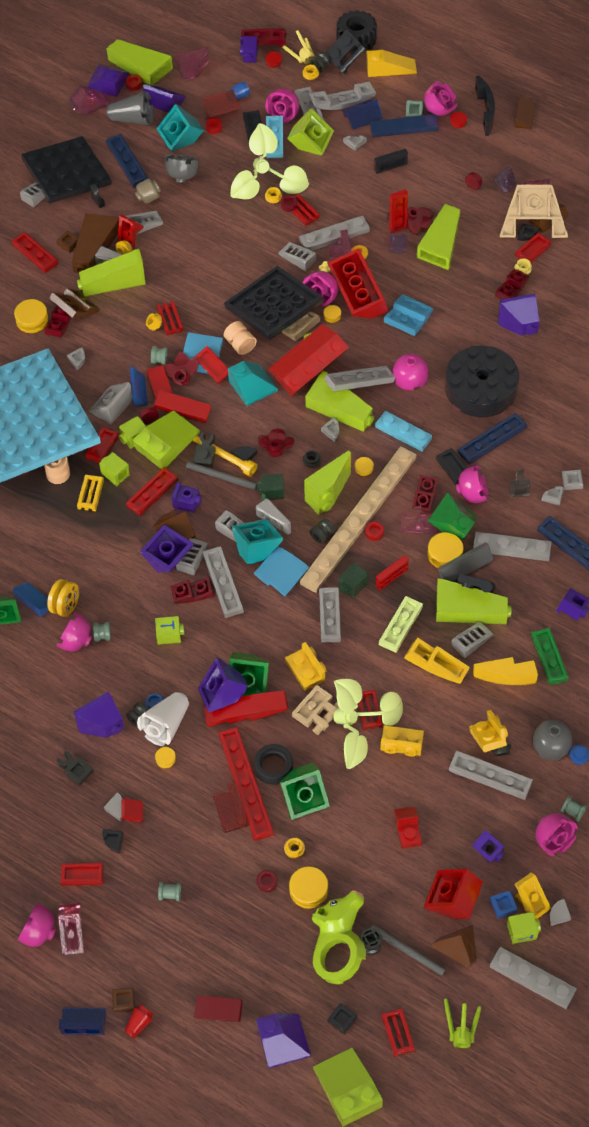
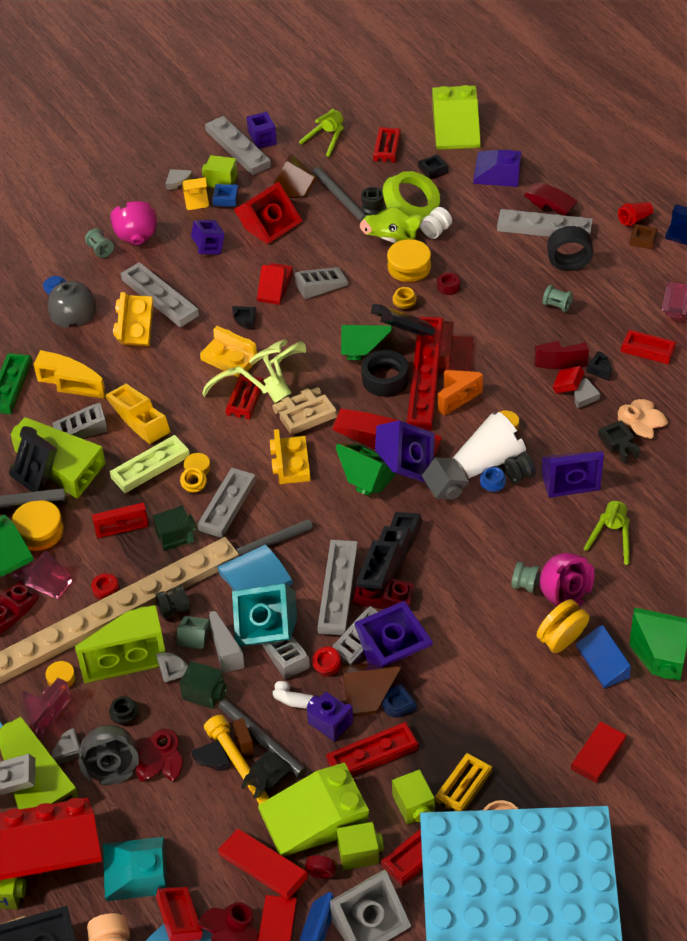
camera: 155 degrees left, 10 degrees down
(17, 539) = (598, 752): none -> red tile
(58, 702) = (614, 518): none -> lime plant
(63, 801) = (642, 417): none -> light nougat plate
(147, 524) = (398, 702): none -> dark blue tile
(152, 828) = (554, 356): none -> dark red slope
(169, 630) = (437, 549): lime brick -> none
(176, 938) = (566, 235): none -> black tyre
(185, 681) = (445, 478): none -> dark grey brick
(199, 614) = (390, 551): none -> black slope
(205, 532) = (327, 661): none -> red tile
(209, 770) = (458, 389): none -> orange slope
(213, 981) = (538, 223): none -> light grey plate
(216, 500) = (291, 699): none -> white arm
(229, 464) = (243, 738): none -> reddish brown tile
(277, 802) = (402, 320): none -> black slope
(284, 604) = (277, 537): none -> dark grey bar
(296, 492) = (171, 666): none -> light grey tile
(300, 524) = (193, 632): none -> sand green slope
(301, 425) = (108, 755): none -> dark grey cylinder
(305, 938) = (434, 224): none -> white wheel
(360, 438) = (44, 710): none -> clear pink slope
(363, 623) = (190, 473): none -> yellow plate
(366, 836) = (313, 282): none -> light grey slope
(369, 638) = (198, 460): none -> yellow tile
(412, 784) = (245, 316): none -> black tile
(516, 990) = (261, 130): none -> dark purple brick

